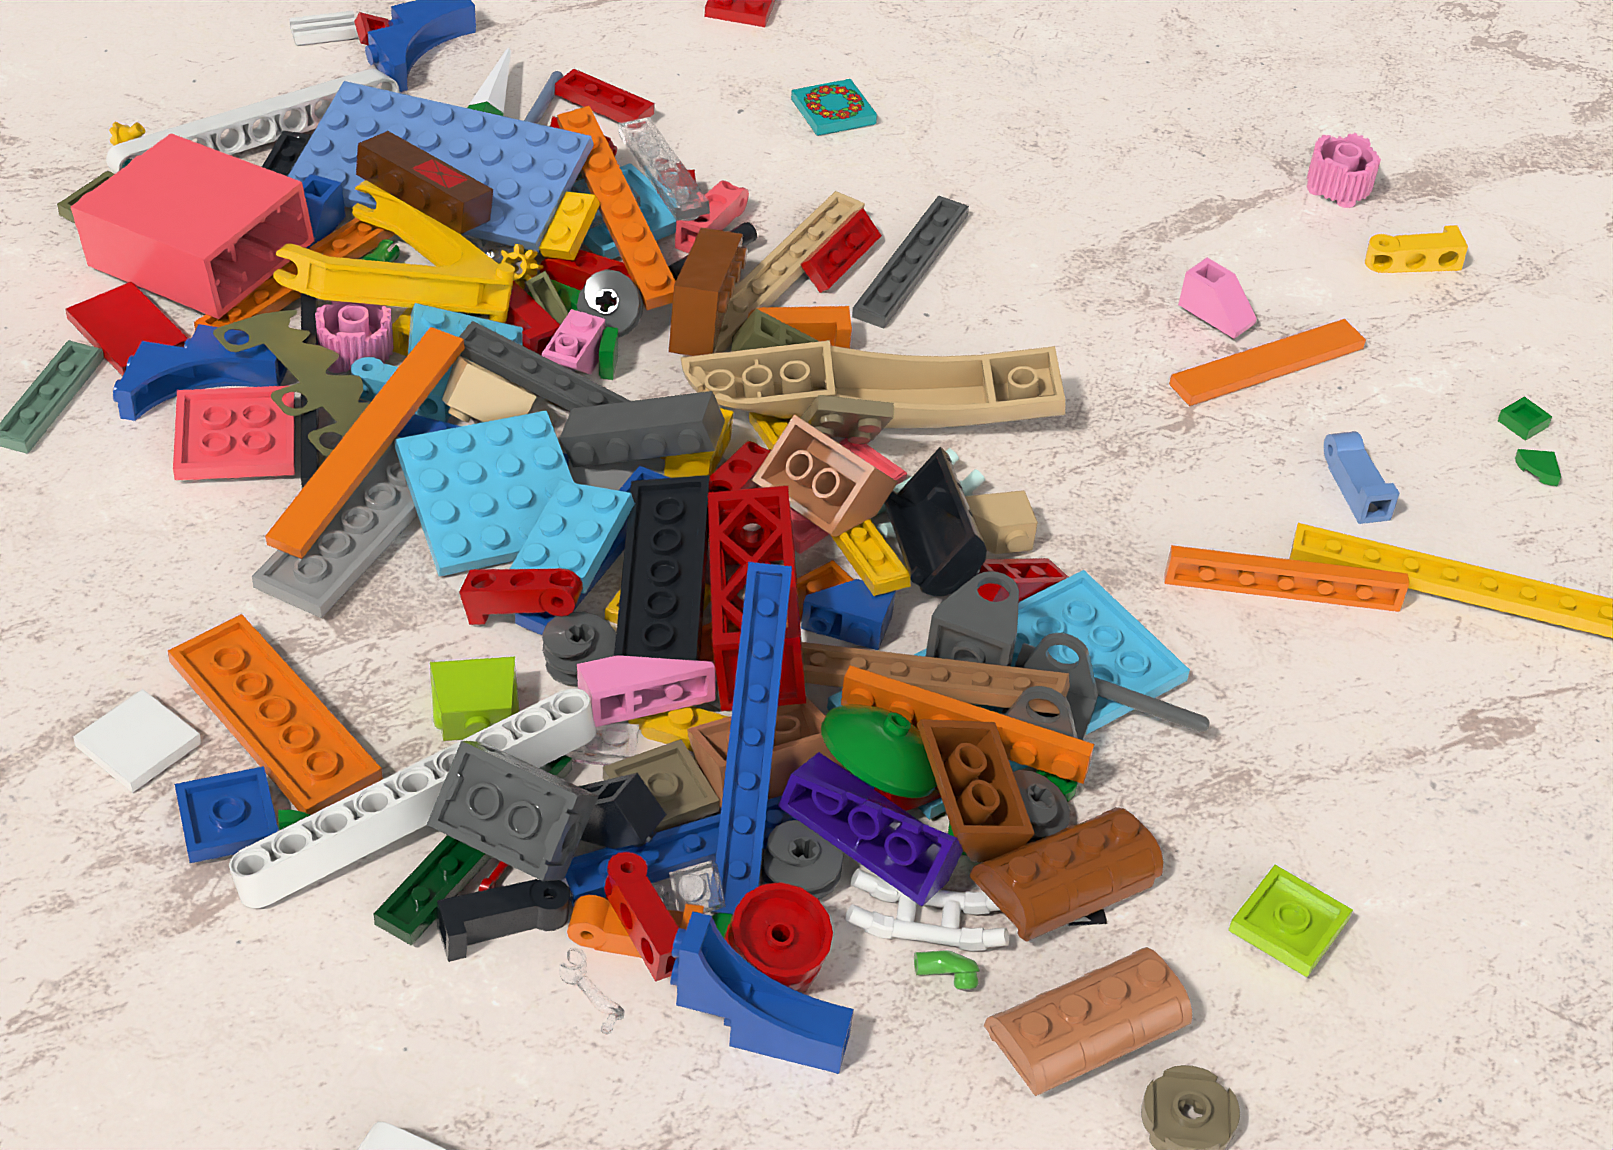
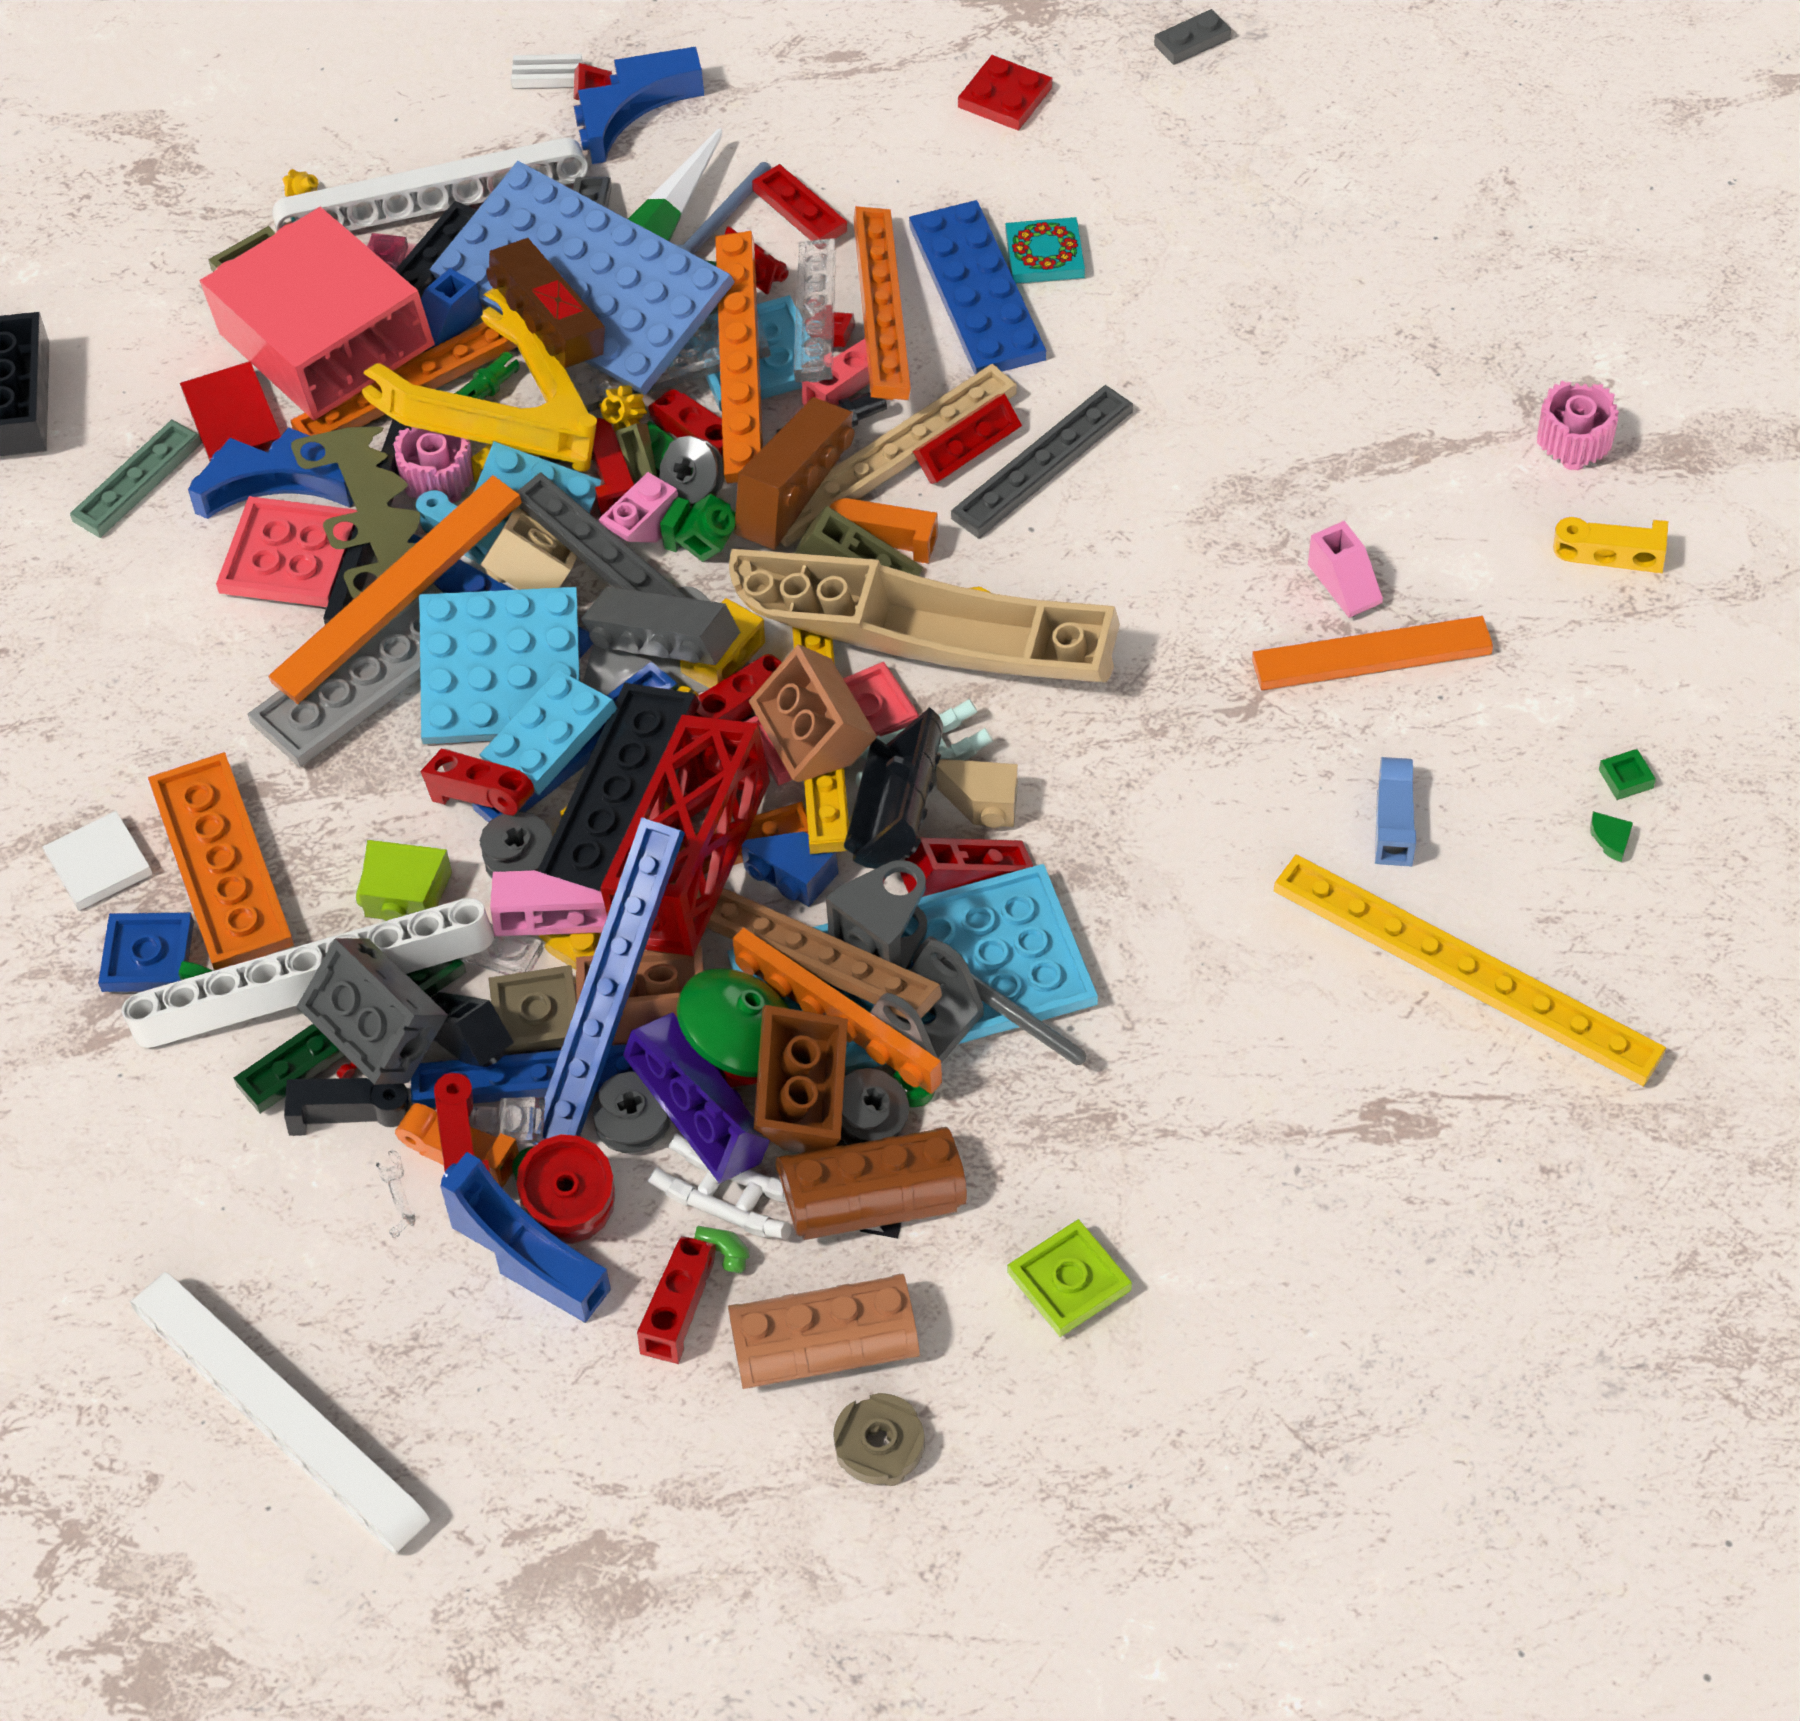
camera: 25 degrees right, 10 degrees up
(569, 225) = (682, 372): yellow plate -> none
(642, 349) = (706, 527): none -> green brick
(722, 156) = (881, 304): none -> orange plate
(788, 140) = (977, 288): none -> blue plate
(849, 417) = (879, 656): dark tan plate -> none
(930, 1028) = (676, 1300): none -> red leg
(1286, 578) = (1252, 914): orange plate -> none

